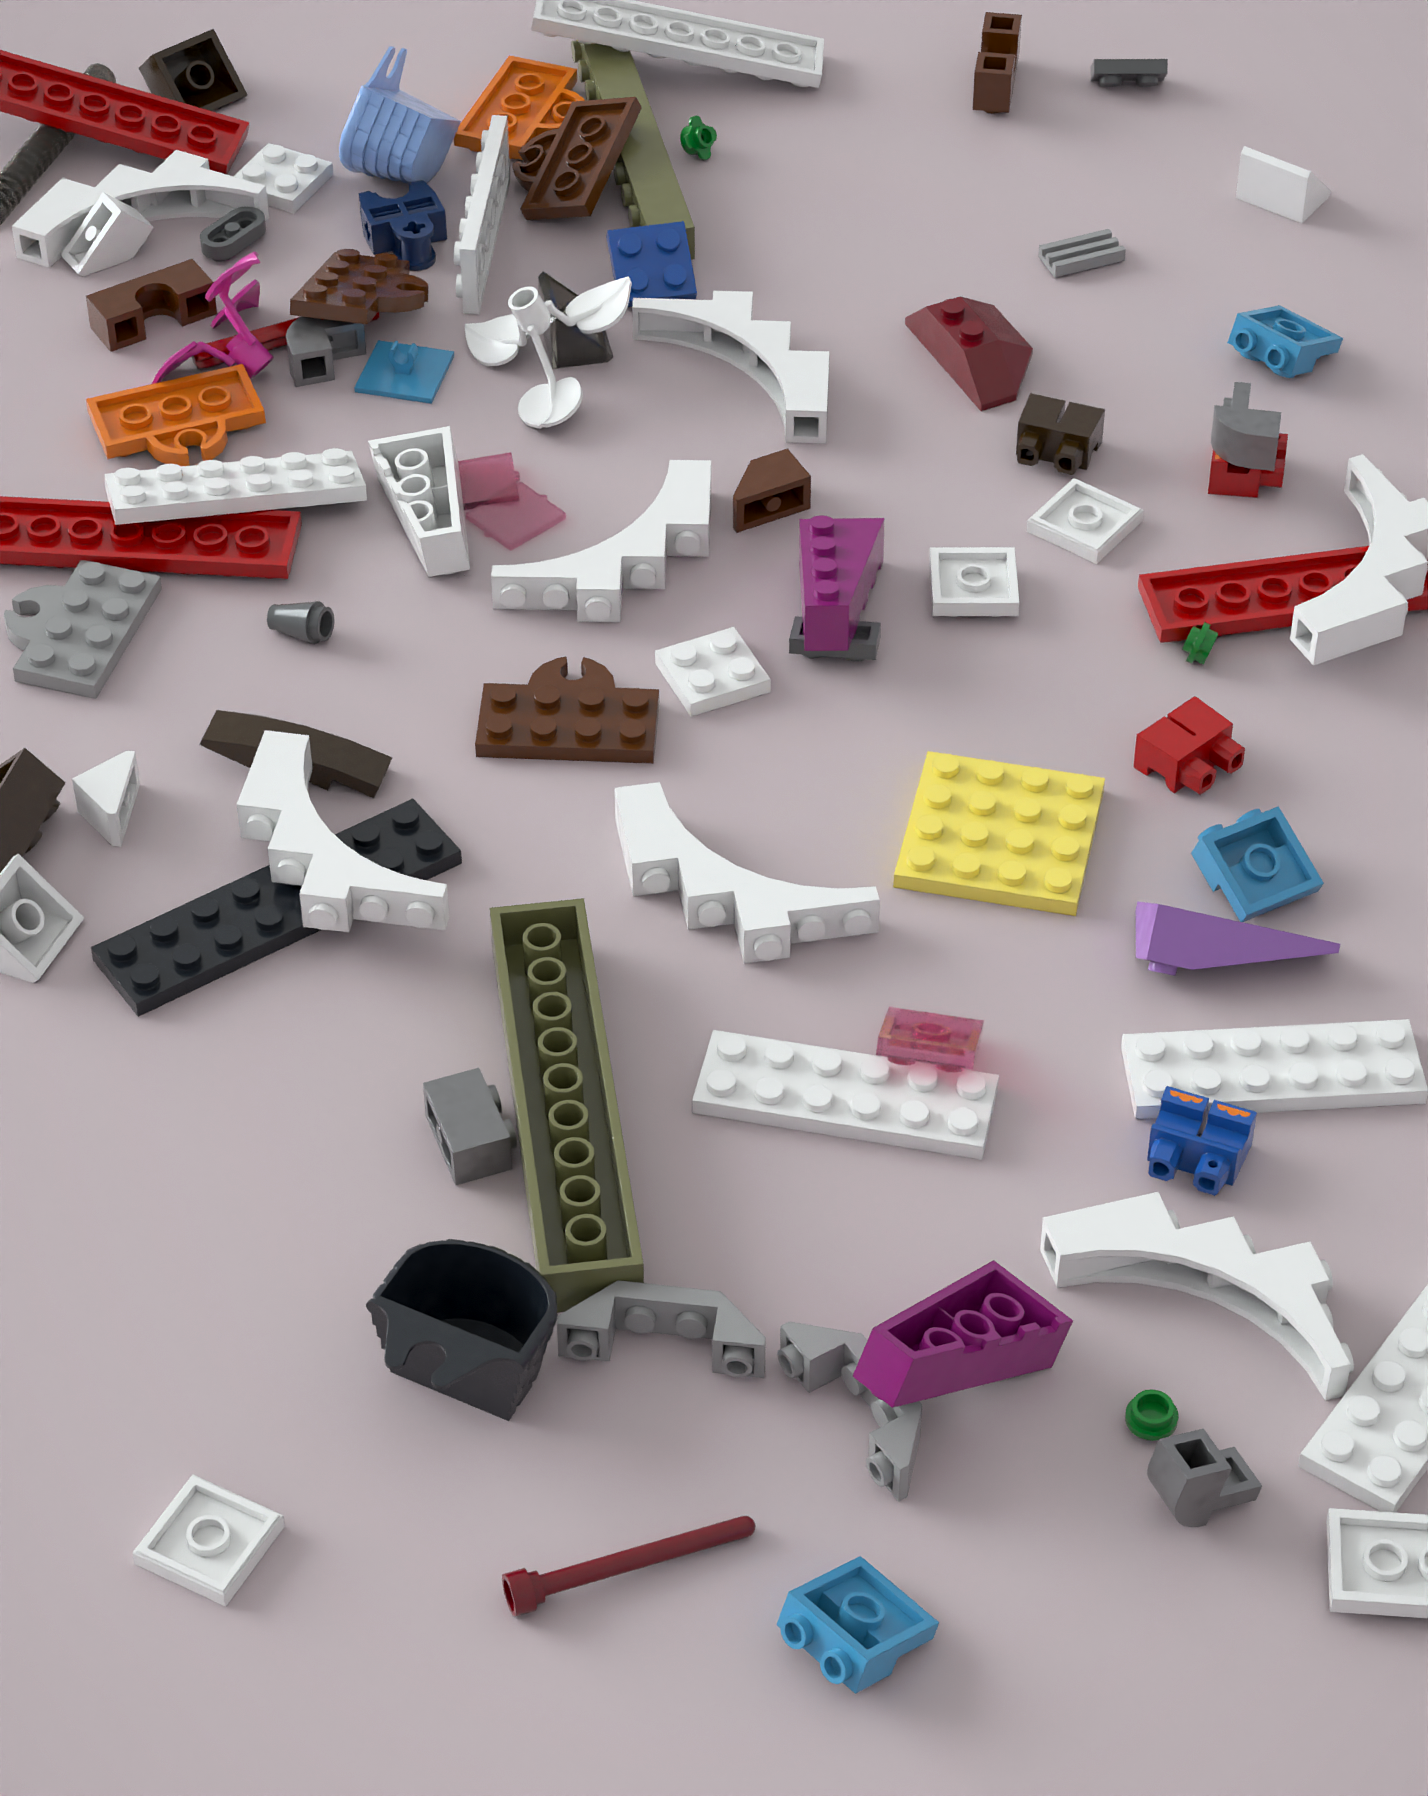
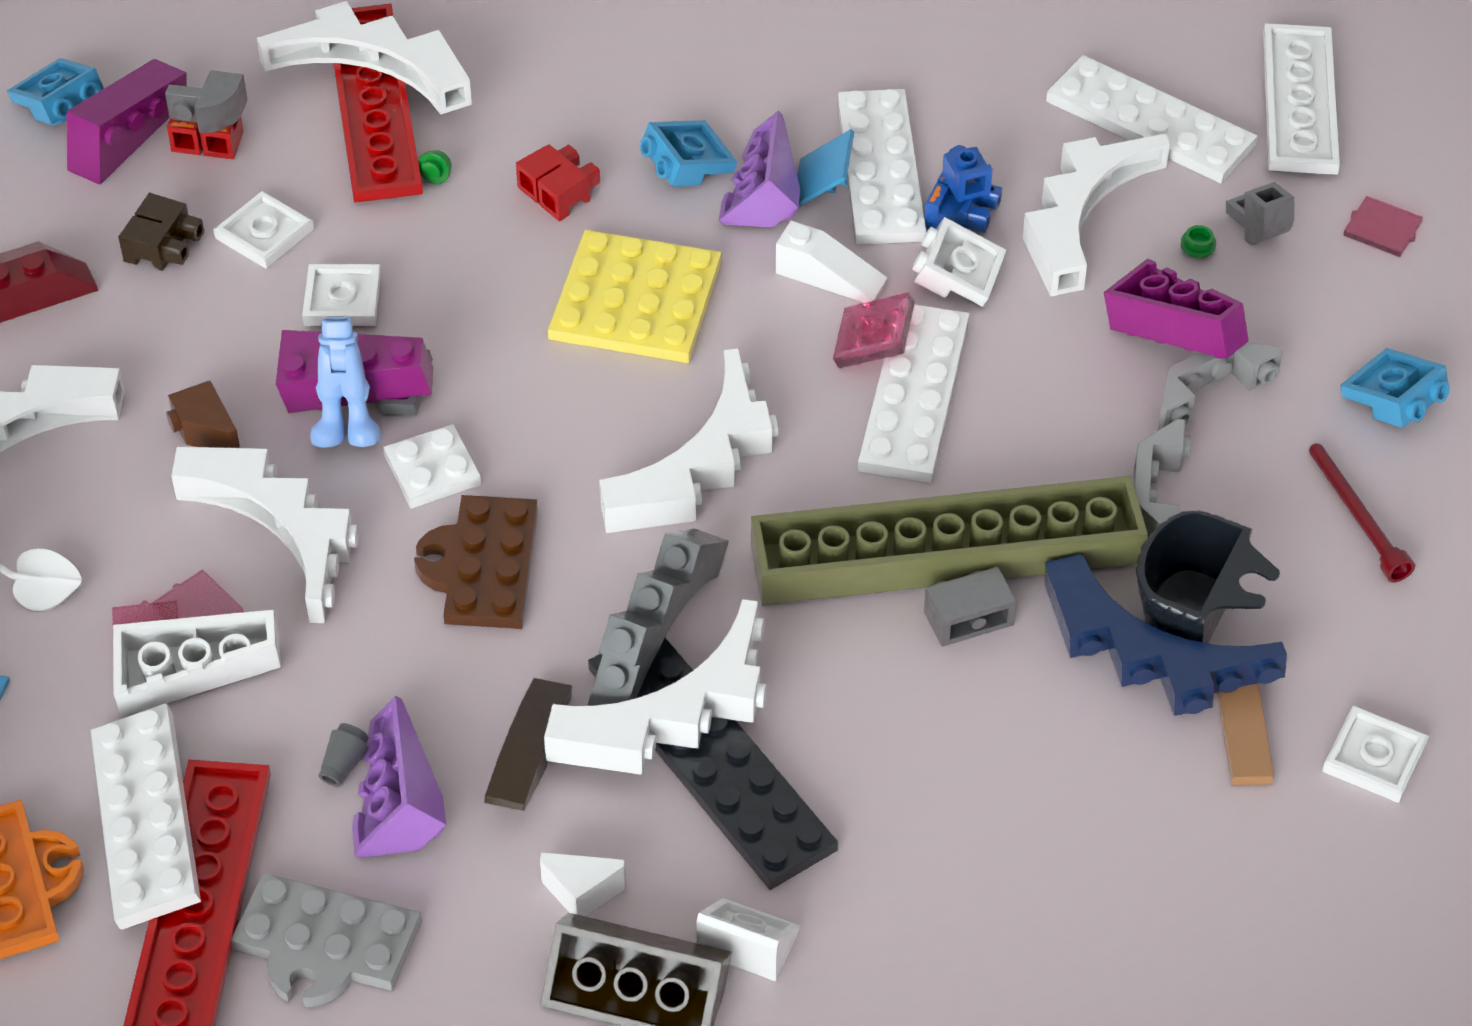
camera: 90 degrees left, 5 degrees up
(225, 660) = (400, 790): none -> medium lavender wedge
(258, 1400) = (1245, 736): none -> medium nougat tile
(332, 1324) = (1142, 653): none -> dark blue arch
(449, 811) = (658, 596): none -> dark grey arch
(764, 588) = (341, 376): none -> light blue piece
(1059, 1002) = (825, 263): none -> white slope
(1070, 1132) = (958, 262): none -> white plate
(1208, 363) = (119, 120): none -> magenta wedge
(1212, 1115) = (965, 164): none -> blue brick
(1223, 1665) = (1383, 226): none -> clear pink piece
(1232, 998) = (825, 167): none -> dark azure piece

